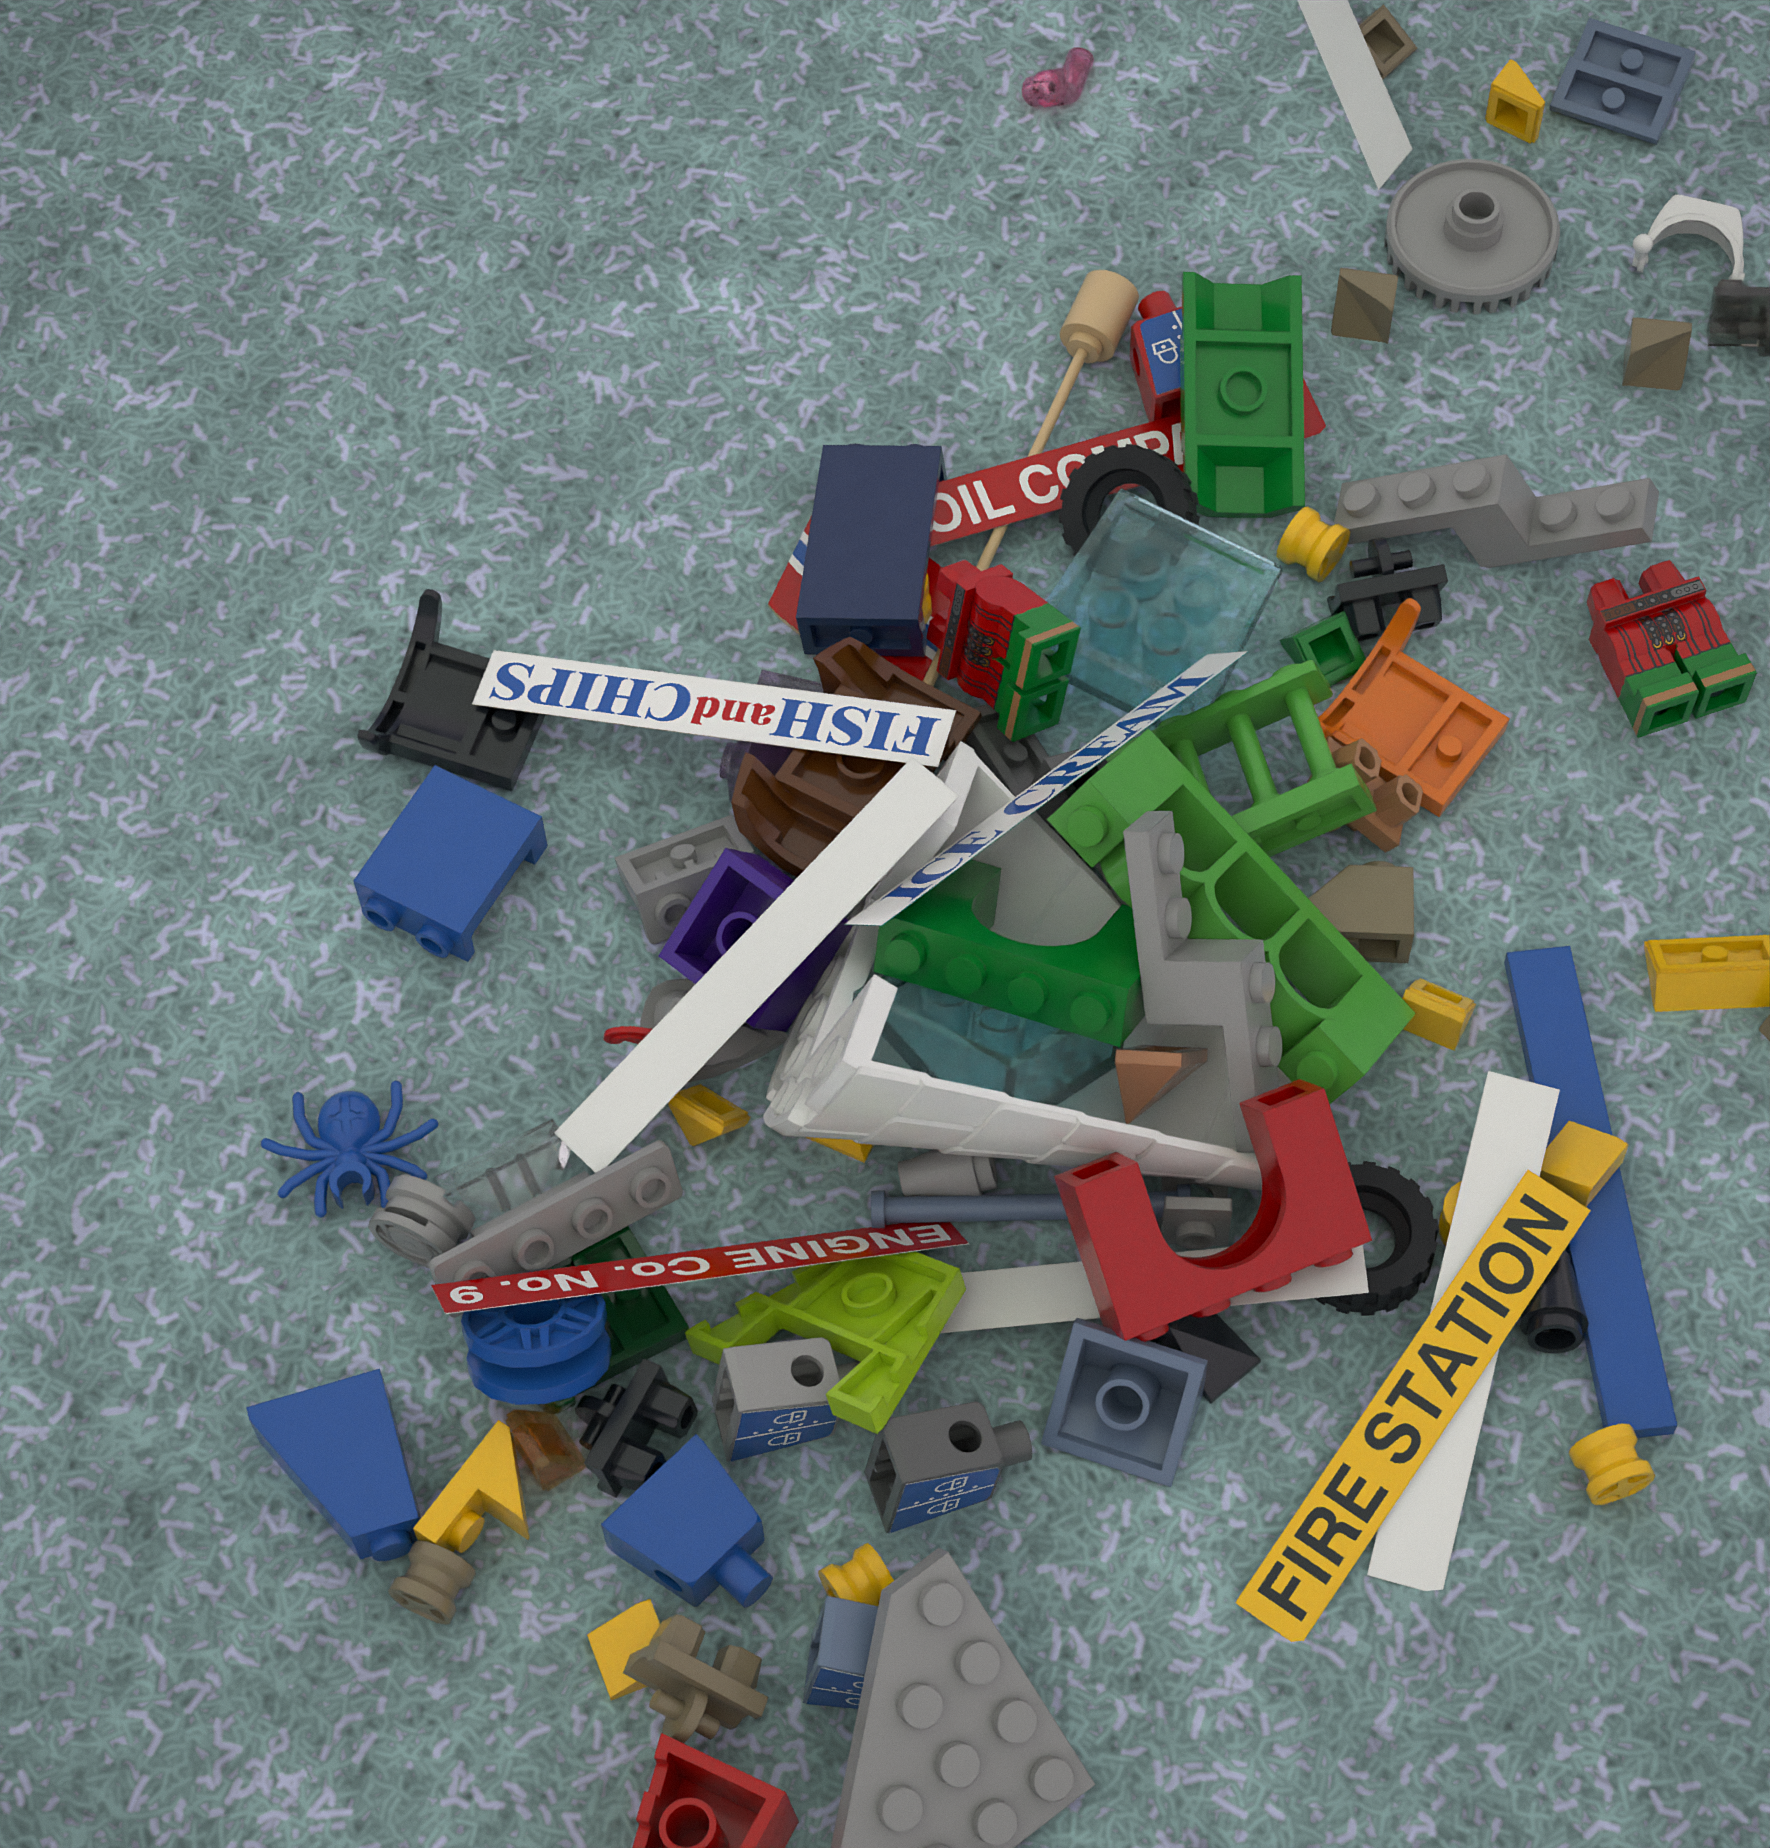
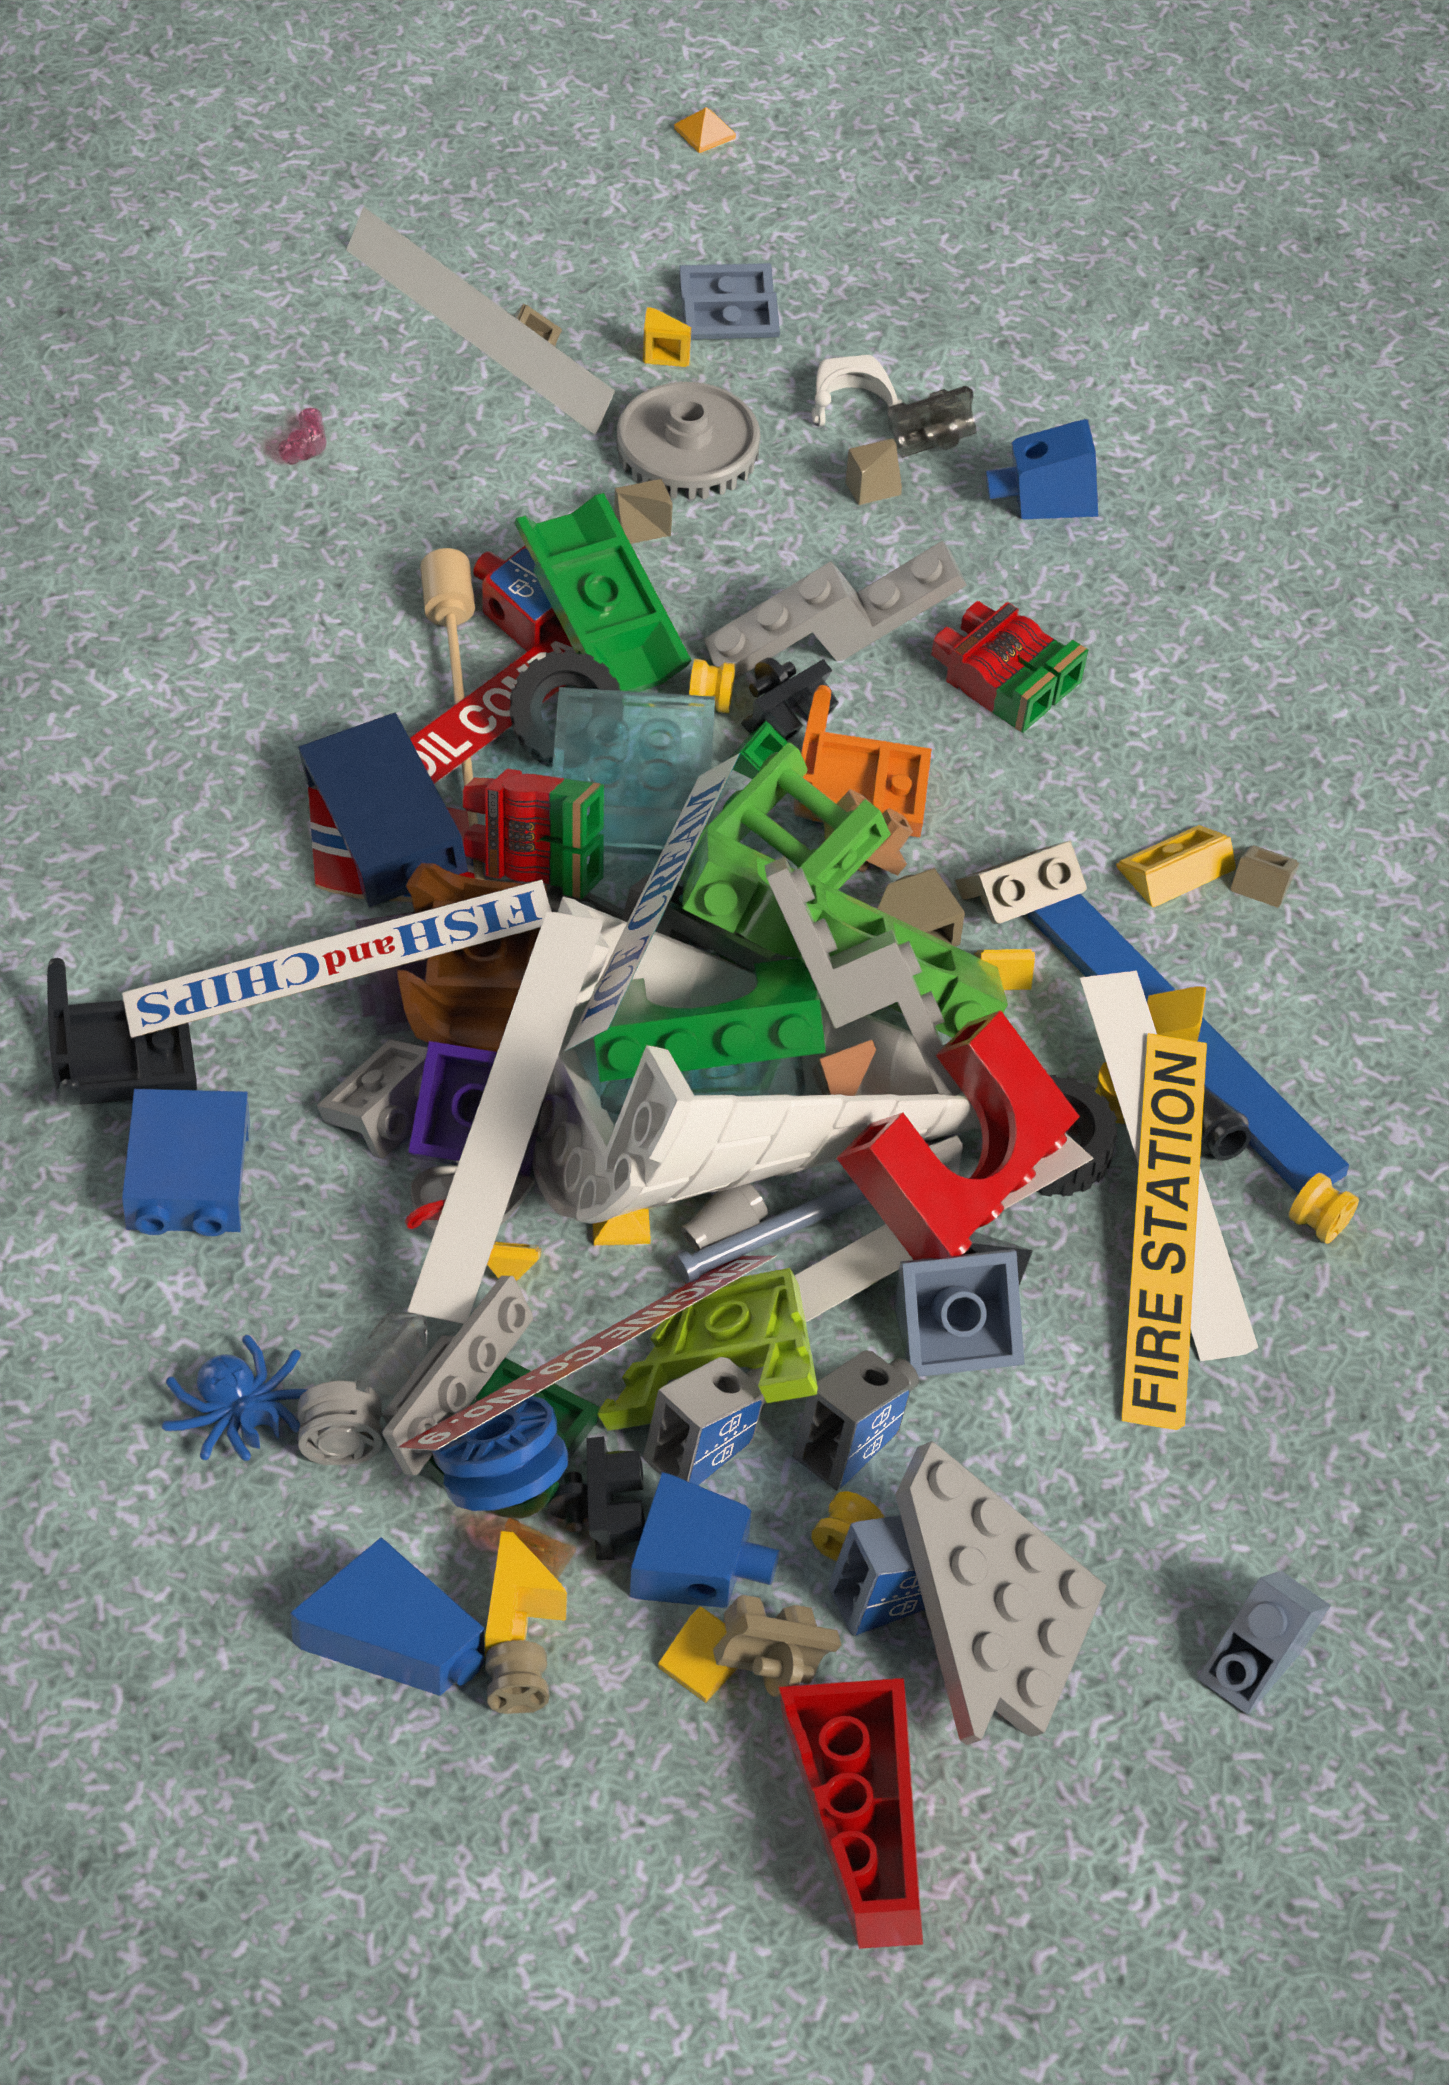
camera: 35 degrees left, 10 degrees down
(1515, 924) = (1025, 882): none -> bracket

